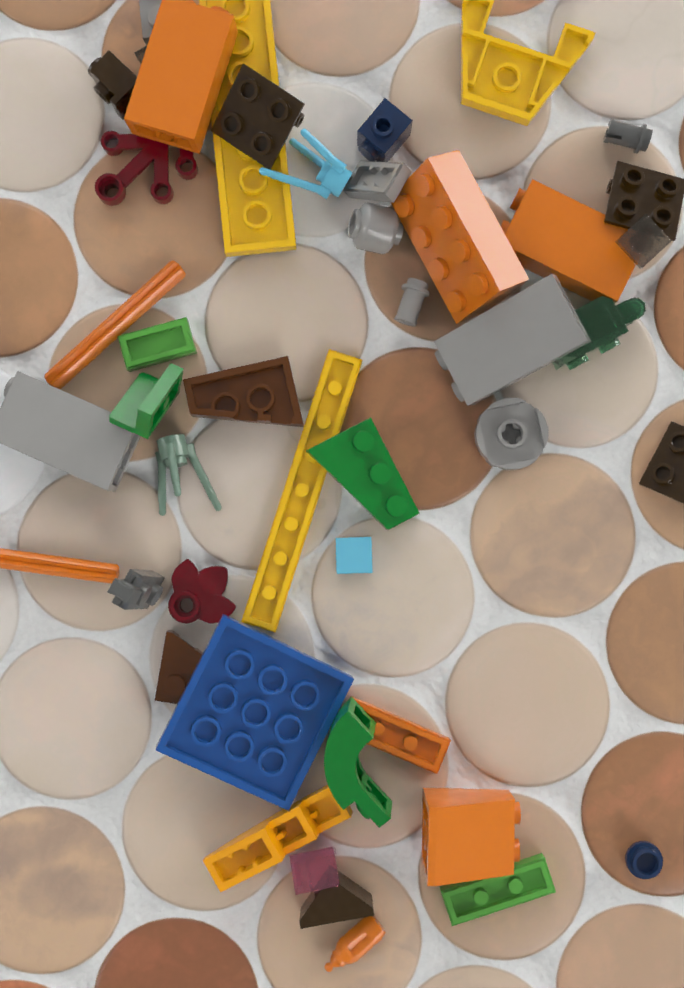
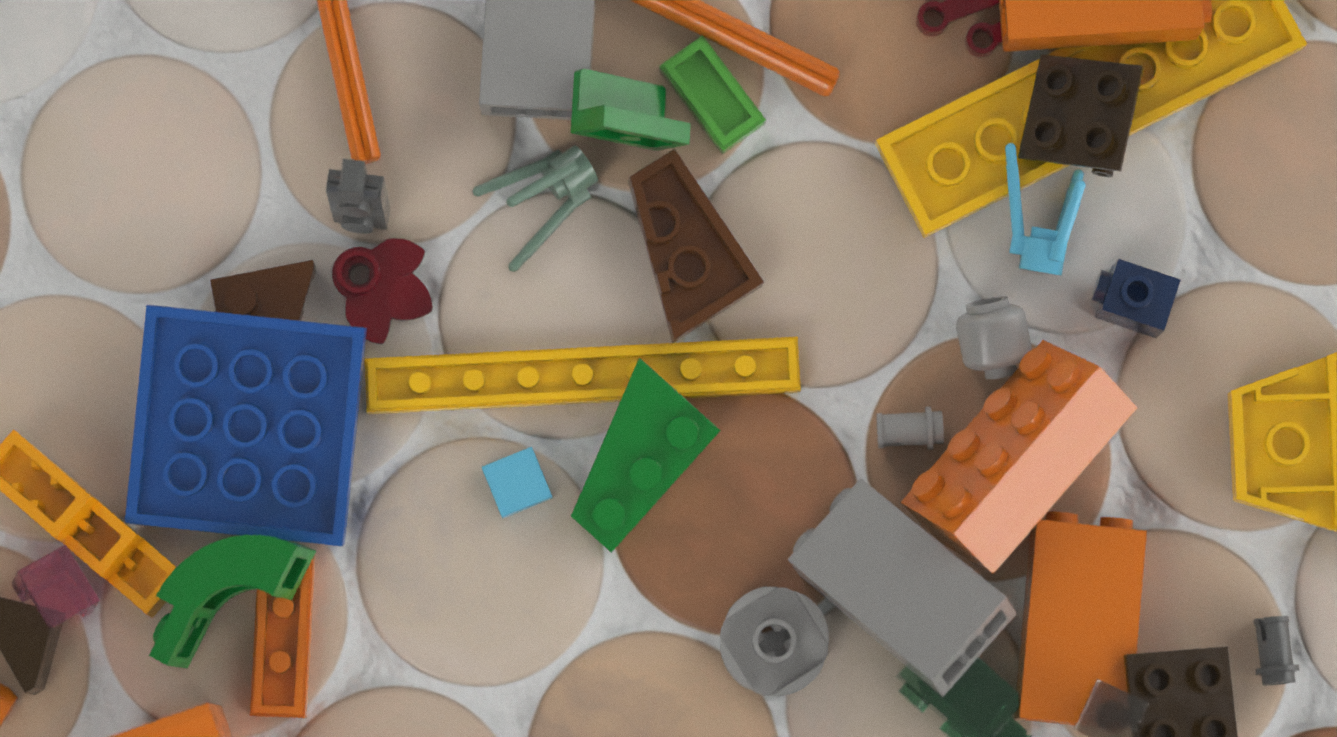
camera: 65 degrees right, 5 degrees down
(377, 181) = (1059, 313): light grey plate -> none

